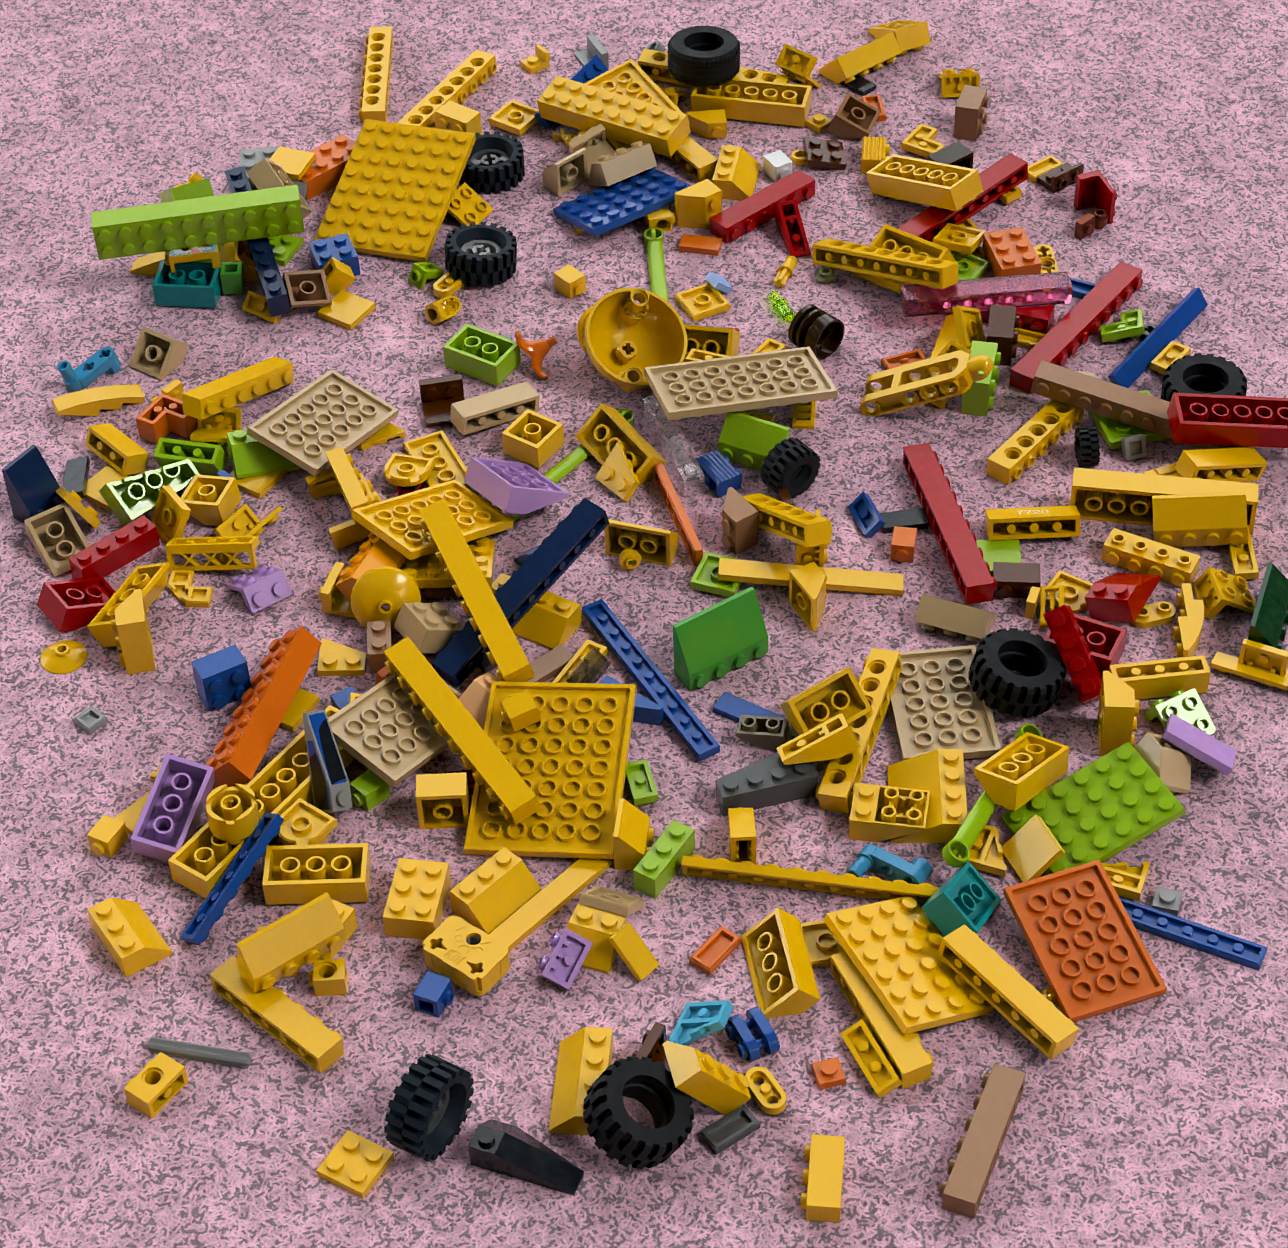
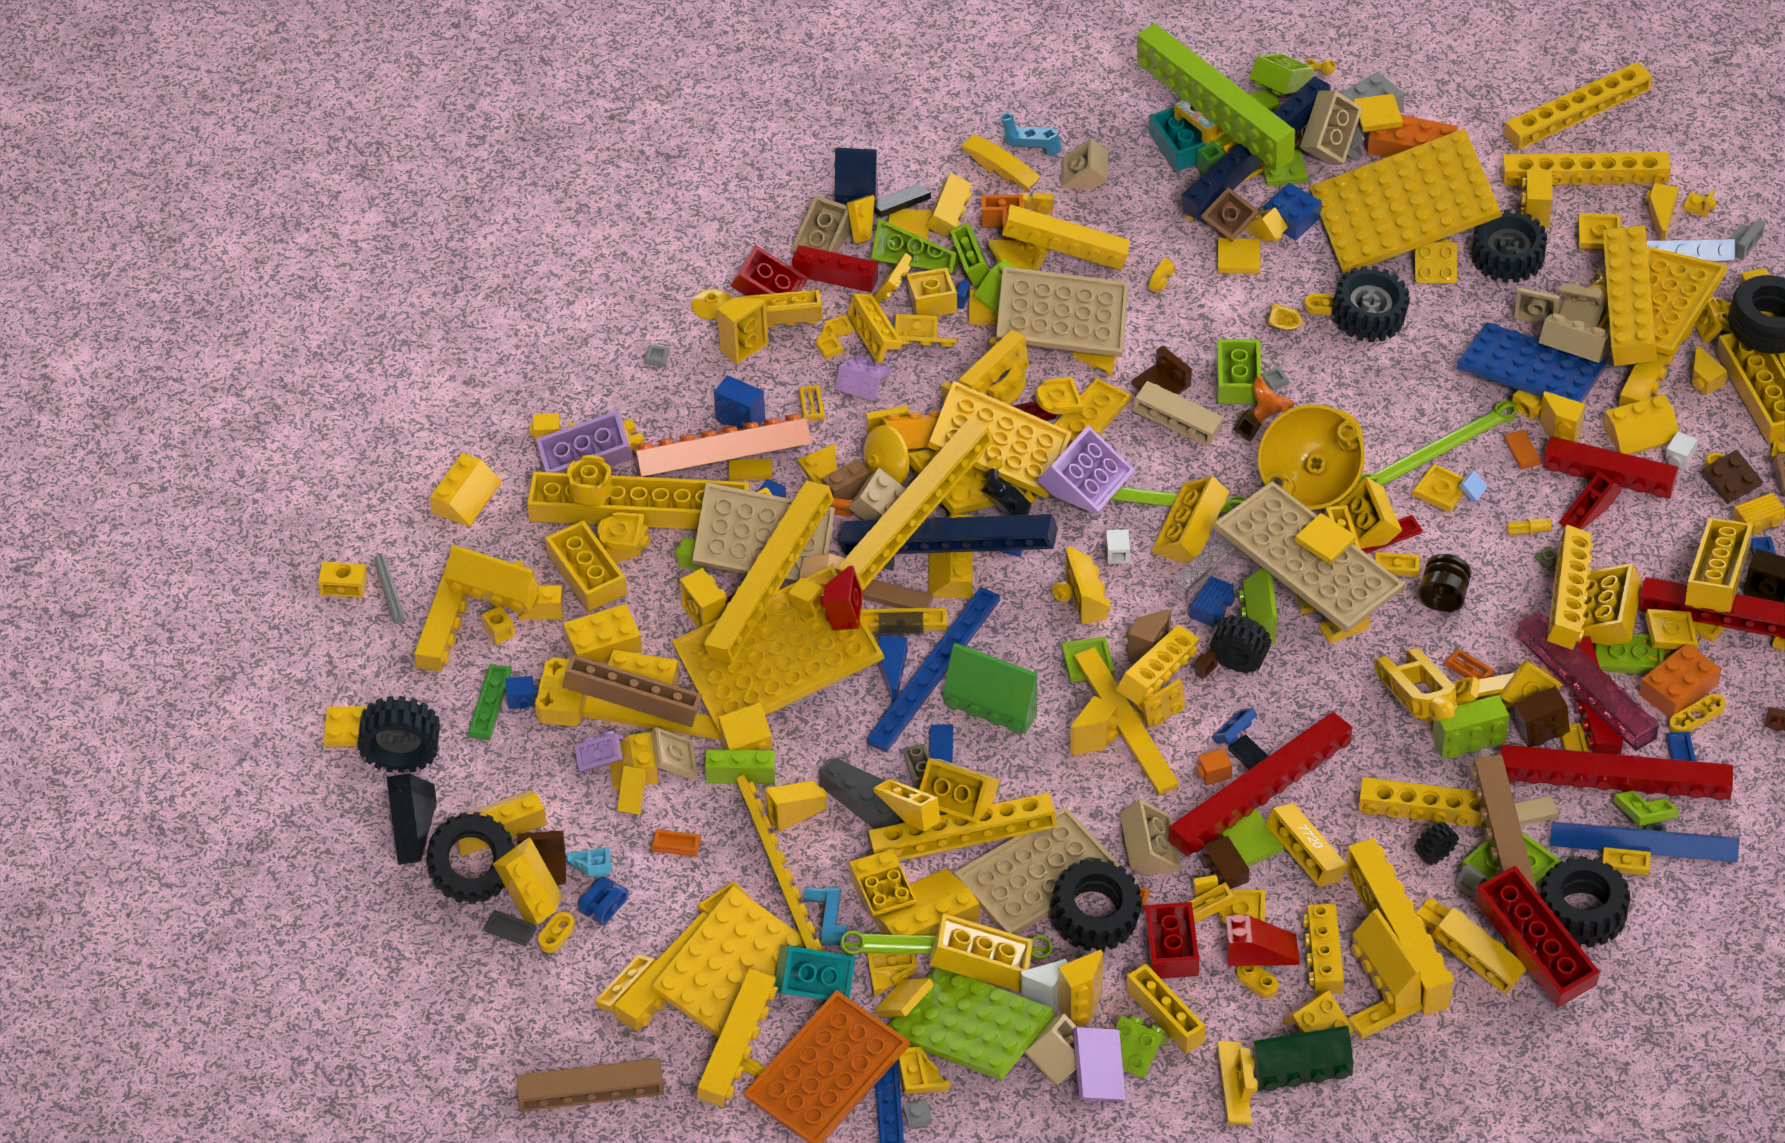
camera: 60 degrees right, 5 degrees up
(231, 879) = (535, 520): blue plate -> none
(254, 639) = (813, 416): none -> yellow tile
(327, 357) = (1161, 274): none -> yellow plate
(327, 773) = (680, 508): slope -> none
(420, 1027) = (489, 702): none -> bright green tile
(424, 271) = (1324, 279): lime bracket -> none
(505, 540) = (1004, 494): none -> black torso
(522, 892) = (632, 690): none -> medium nougat brick
(524, 78) = (1661, 207): none -> yellow slope
(533, 438) = (1157, 457): yellow brick -> none
(542, 375) = (1247, 425): none -> dark brown slope
(564, 678) = (843, 600): none -> red slope
(569, 281) = (1389, 383): yellow brick -> none
(611, 501) = (1117, 546): none -> white brick
(618, 474) = (1156, 535): yellow wing -> none
(641, 782) = (815, 716): lime plate -> none
(678, 514) = (1140, 597): orange tile -> none
(734, 363) = (1325, 538): none -> yellow tile
(780, 965) = (682, 889): yellow slope -> none
(781, 306) = (1477, 545): clear neon green axle -> none
(823, 1178) = (495, 1002): yellow brick -> none
(828, 1073) = (599, 965): orange plate -> none
(1075, 653) = (1136, 931): red brick -> none
(1090, 740) = (1042, 984): none -> white slope
(1189, 622) = (1250, 1012): yellow slope -> none

